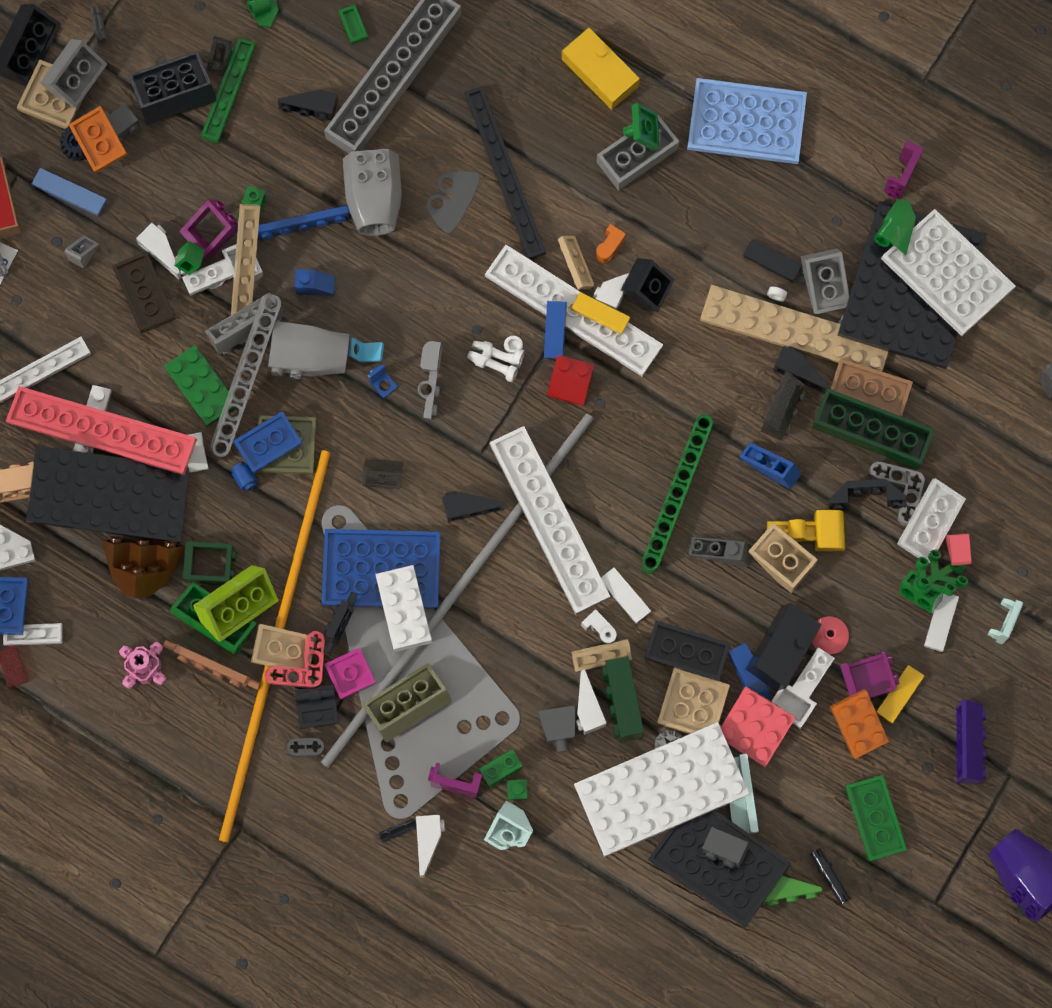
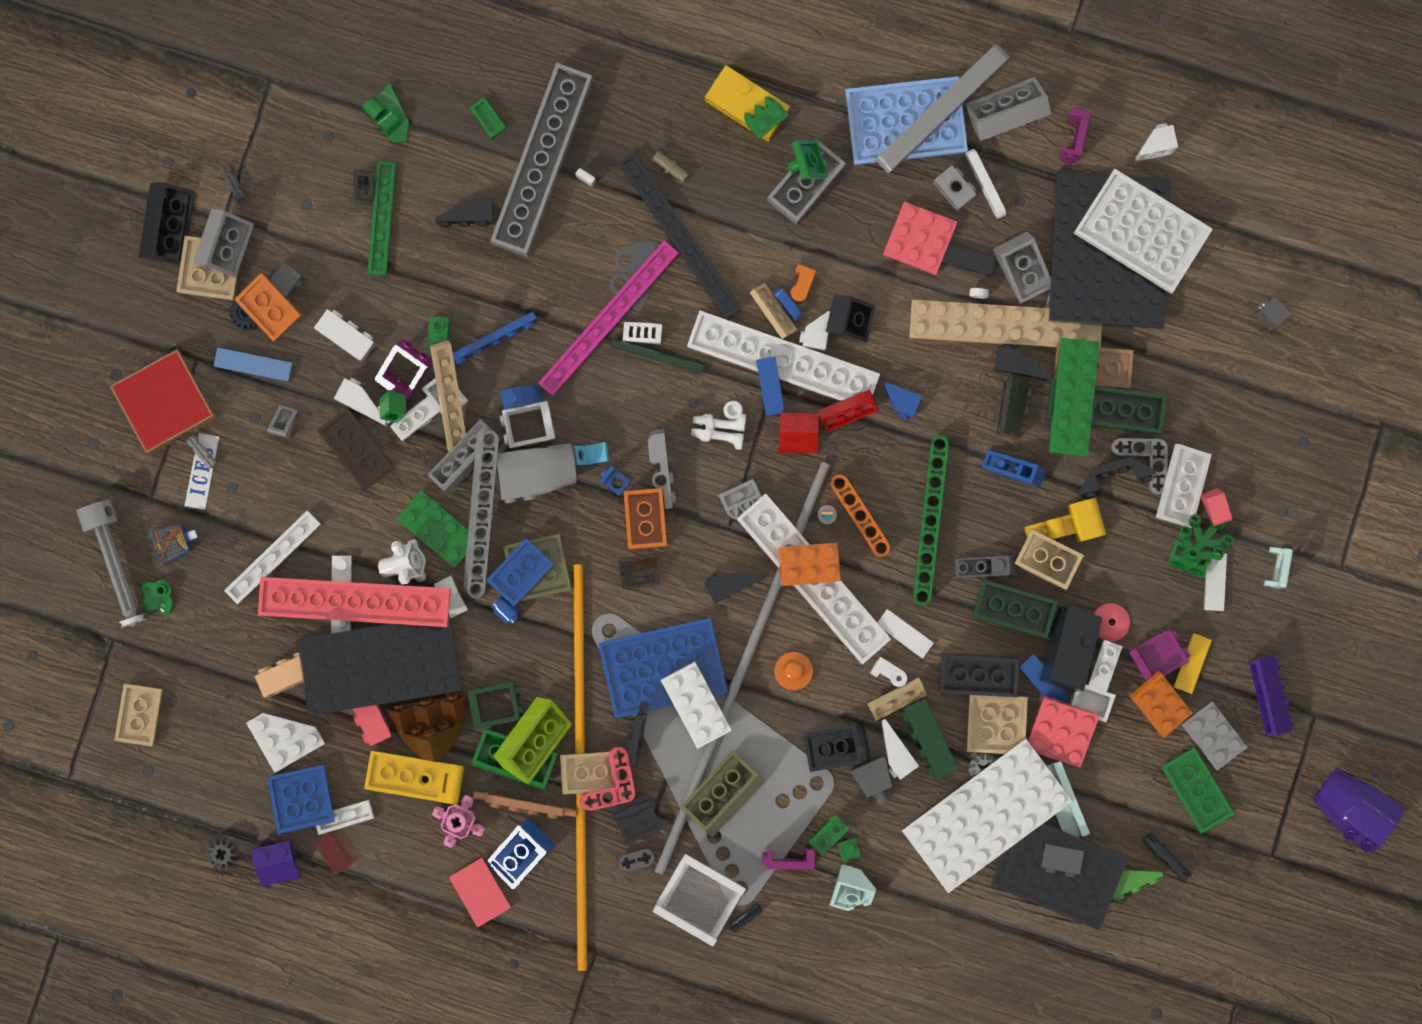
camera: 10 degrees left, 10 degrees up
(86, 551) = (373, 724): none -> coral brick
(102, 609) = (404, 777): none -> yellow hinge
(144, 740) = (480, 892): none -> coral tile
(160, 406) = (406, 562): none -> white piece
(163, 185) = (345, 335): none -> white brick
(172, 87) = (325, 231): black slope -> none
(194, 711) = (520, 853): none -> blue slope
(317, 294) = (505, 422): none -> white window
(350, 673) = (660, 778): dark pink plate -> none
(357, 799) = (698, 899): none -> clear piece
(373, 190) = (555, 290): light grey animal -> none
(402, 423) = (645, 519): none -> orange brick
(416, 231) = (608, 318): none -> dark pink plate
(428, 837) = (777, 916): white slope -> none
(430, 98) = (585, 177): none -> white tile
(448, 246) = (650, 326): none -> white slope
(454, 277) = (657, 356): none -> clear green piece
(497, 426) = (739, 497): none -> light grey plate
(507, 604) = (793, 671): none -> orange plate
(513, 108) = (670, 166): none -> dark tan pin
(531, 687) = (837, 747): none -> black slope
(547, 501) = (808, 564): none -> orange brick
(578, 464) = (827, 514): none -> light grey tile
(591, 259) = (787, 304): none -> blue beam
(600, 313) = (811, 358): yellow tile -> none
(609, 463) = (860, 525): none -> orange beam
(614, 83) = (765, 118): none -> green plate
(623, 371) = (848, 410): none -> red slope
(679, 375) = (902, 400): none -> blue slope
(733, 230) = (920, 238): none -> coral plate
(737, 596) = (1014, 609): none -> dark green brick
(778, 203) = (956, 199): none -> light grey brick
(783, 116) = (942, 108): none -> light grey beam
(808, 195) = (985, 183): none -> white beam
(844, 408) = (1074, 397): none -> green plate
(846, 133) = (1008, 108): none -> light grey slope
(897, 226) = (1082, 197): green panel -> none
(905, 770) = (1214, 735): none -> light grey plate
(981, 197) = (1159, 143): none -> white slope

